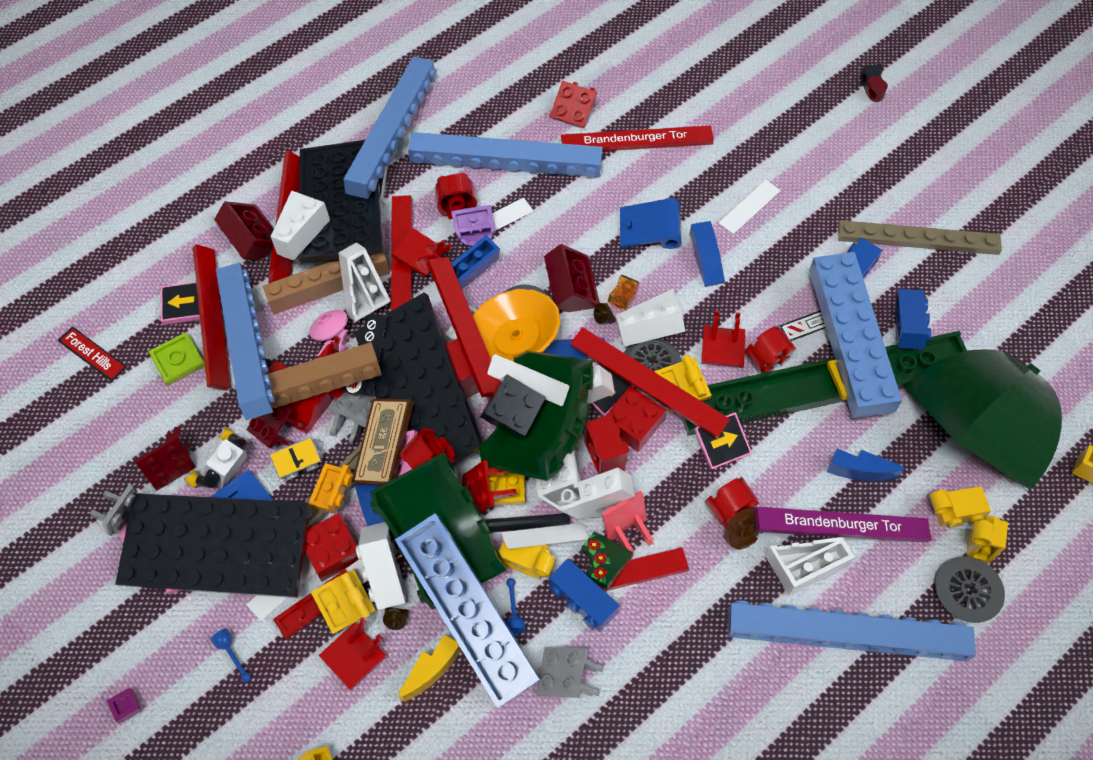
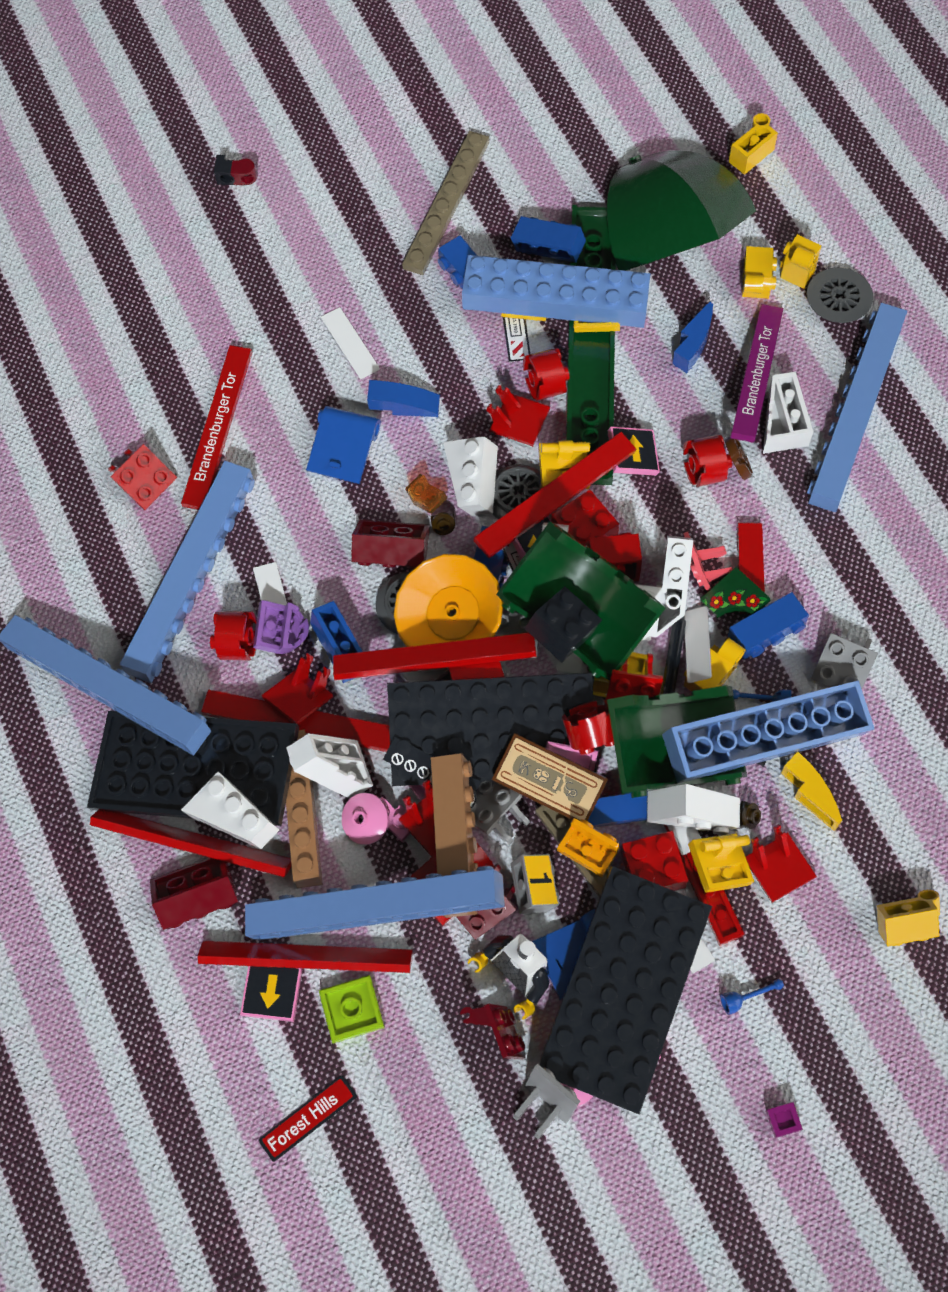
camera: 70 degrees left, 5 degrees up
(552, 389) = (518, 617): white sticker -> none

